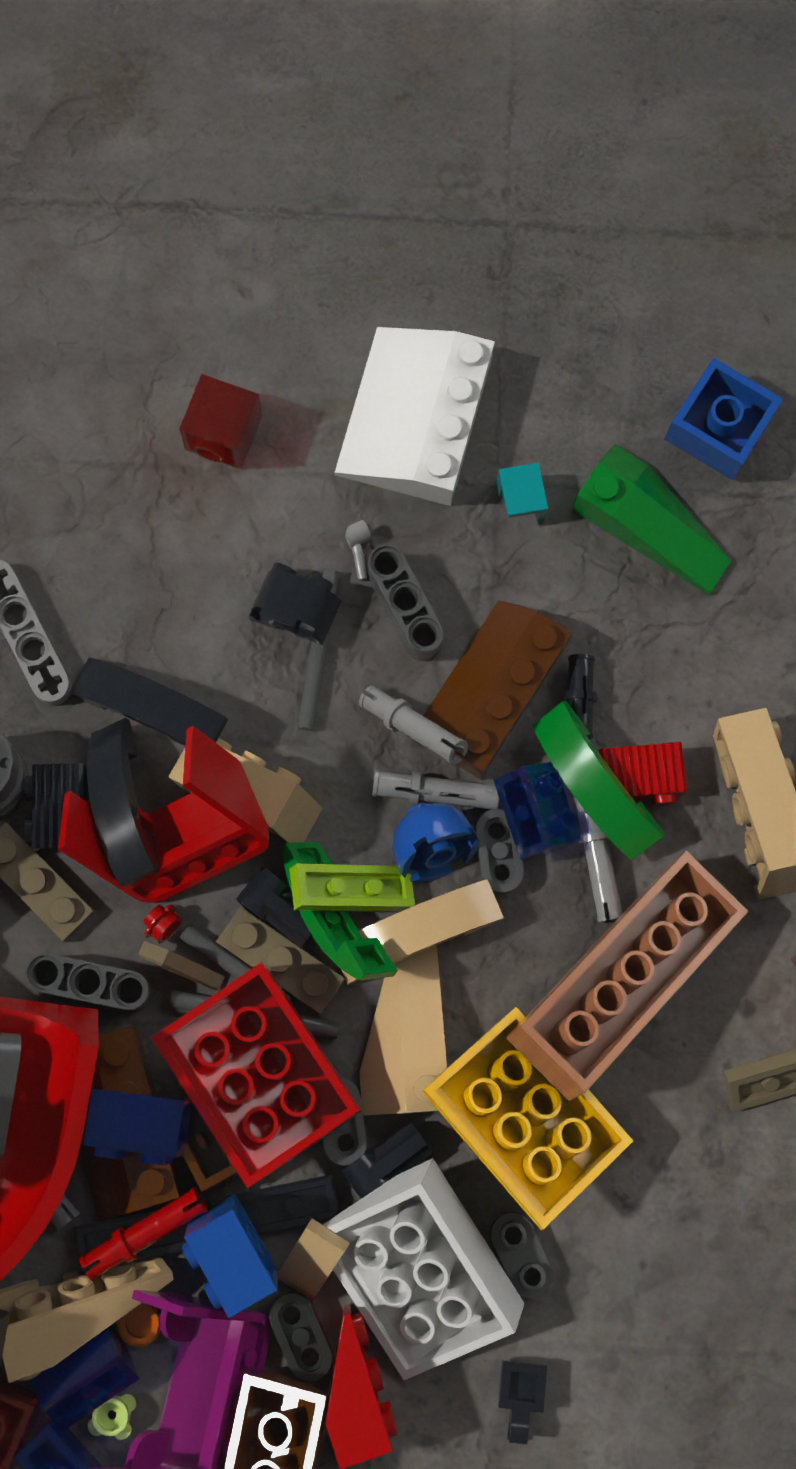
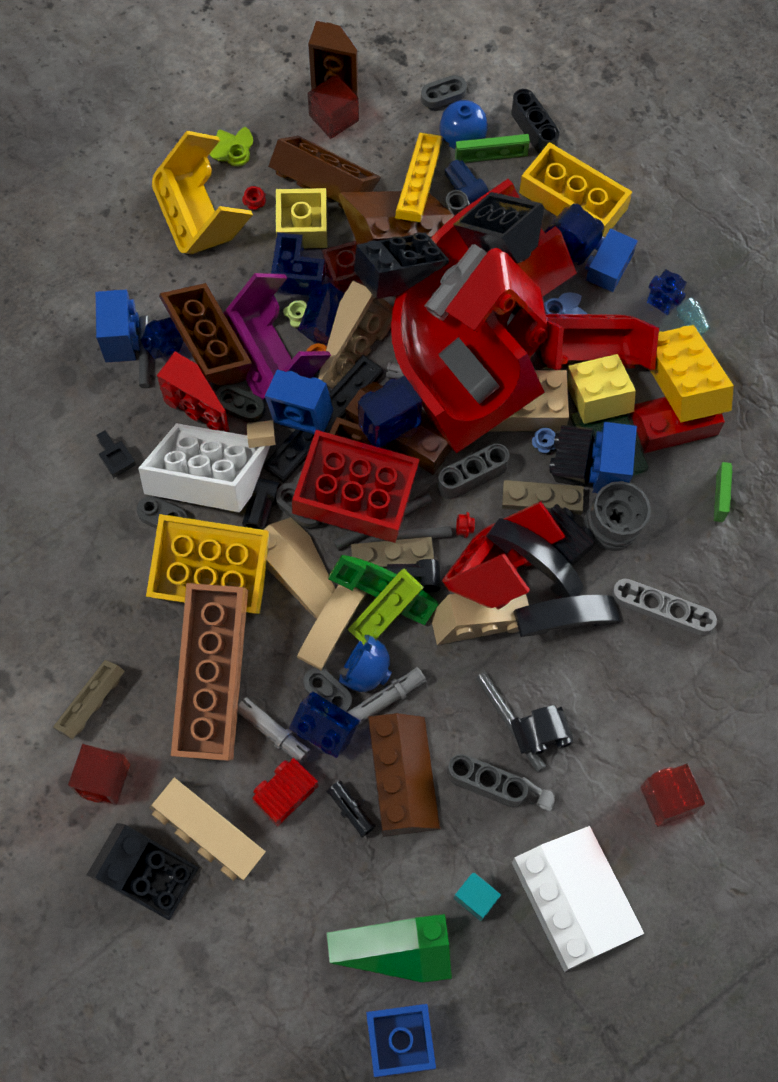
camera: 145 degrees right, 10 degrees down
(129, 1242) = (352, 376): red pin -> none
(180, 965) = (438, 511): dark tan tile -> none
(399, 716) = (436, 714): light grey pin -> none
(594, 783) = (308, 759): green slope -> none

